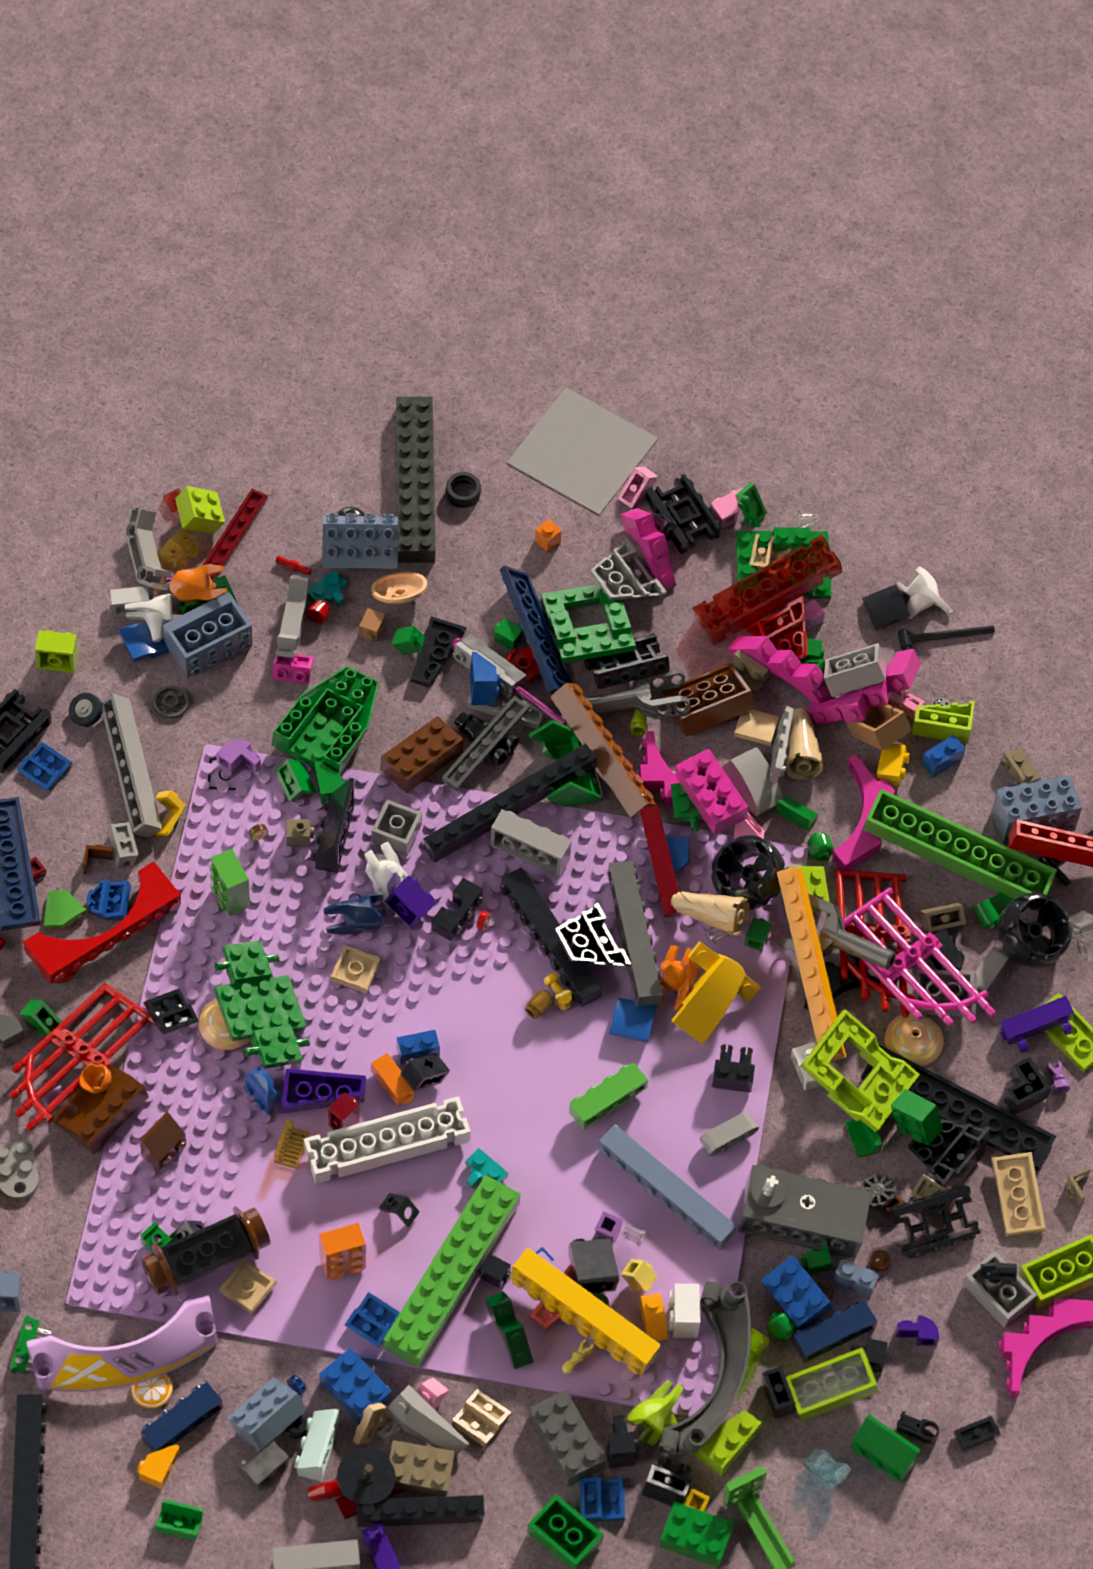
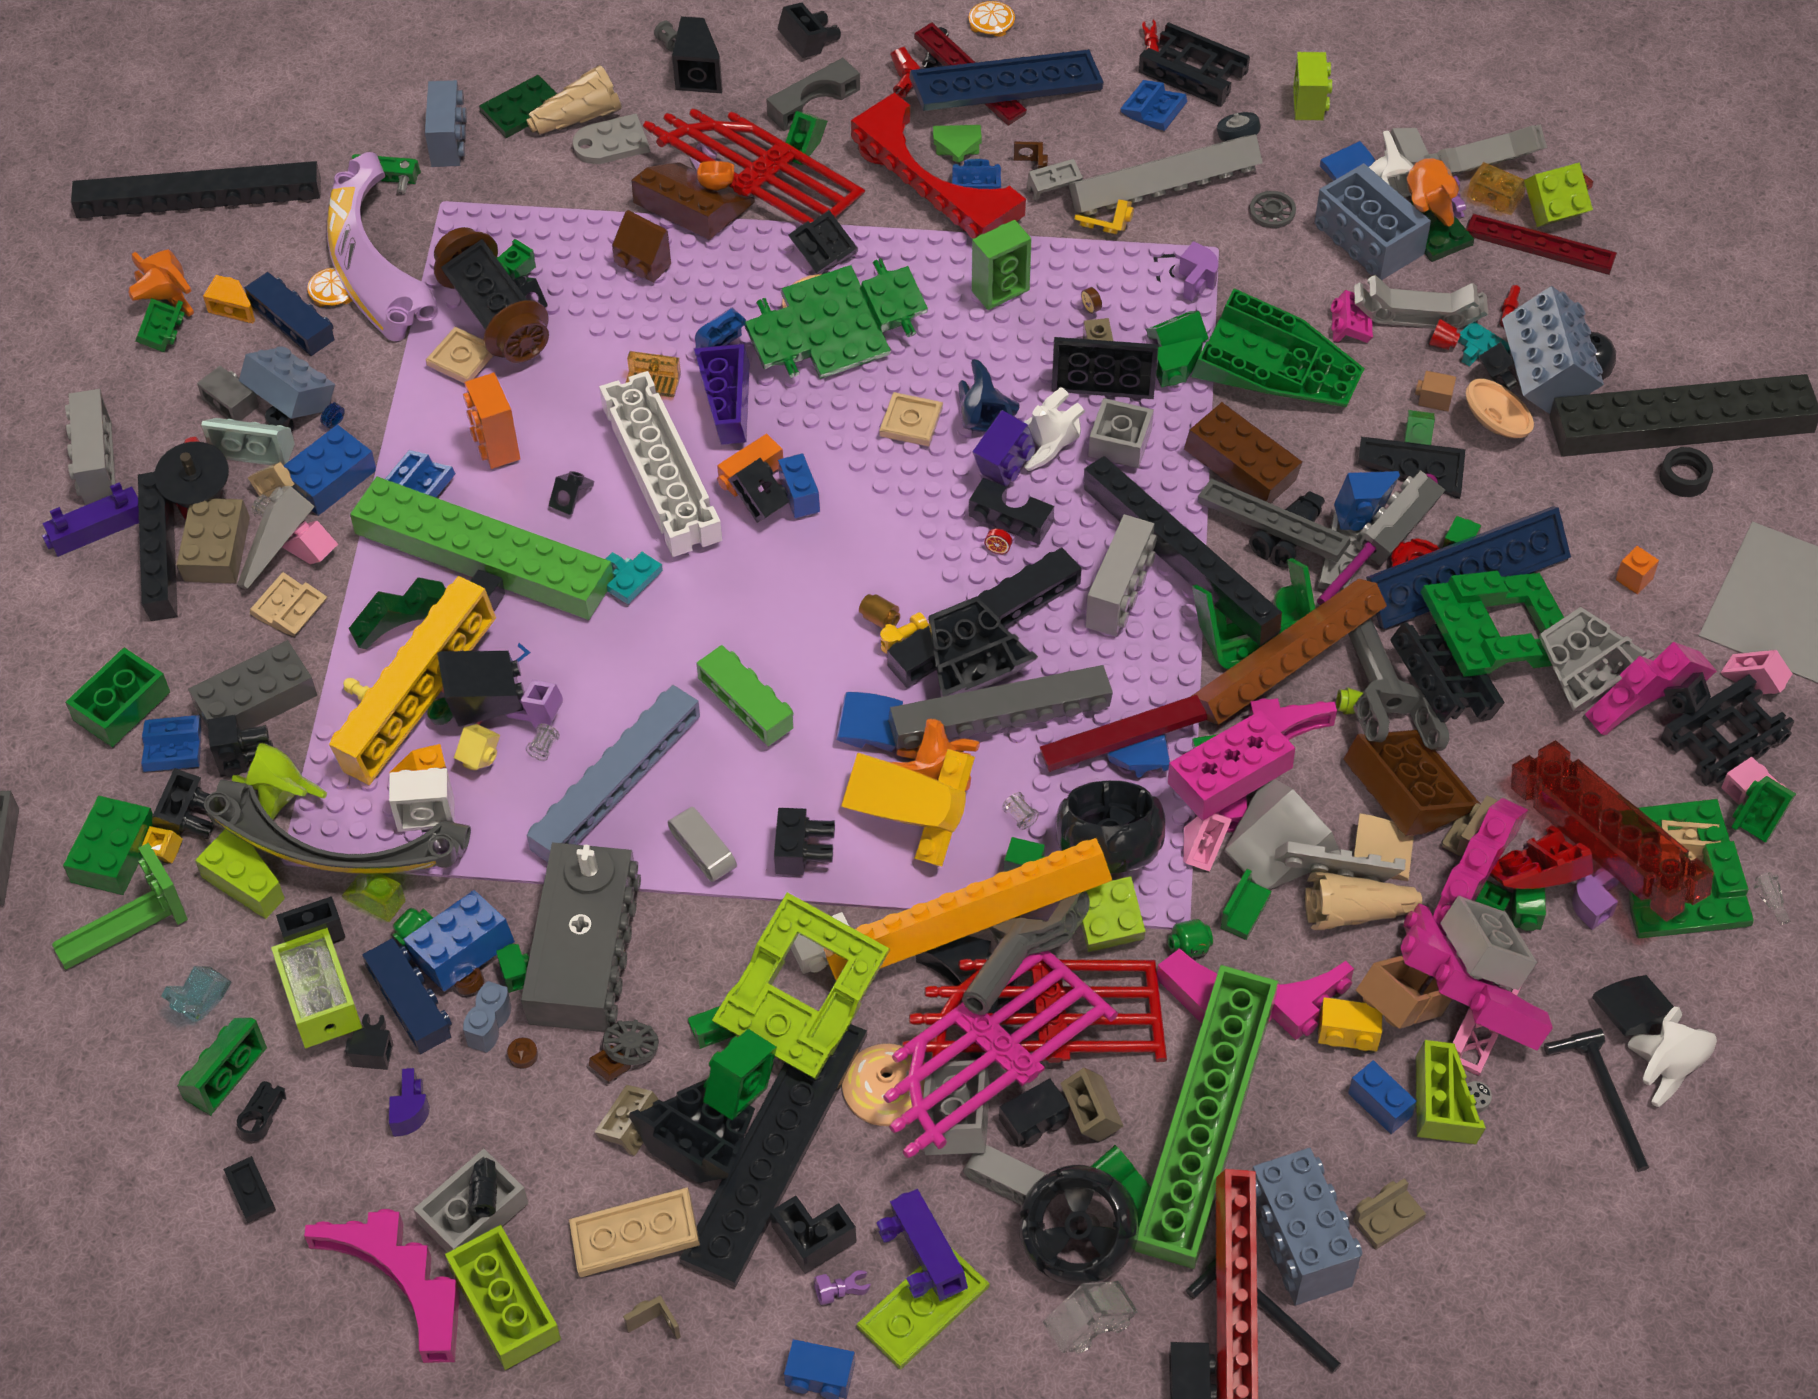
camera: 90 degrees right, 5 degrees down
(137, 1516) = (161, 280): none -> orange piece
(344, 1112) = (689, 412): dark red brick -> none
(357, 580) = (1499, 364): none -> black brick
(714, 910) = (1036, 793): tan cone -> none
(931, 1206) = (598, 1103): black fence -> none

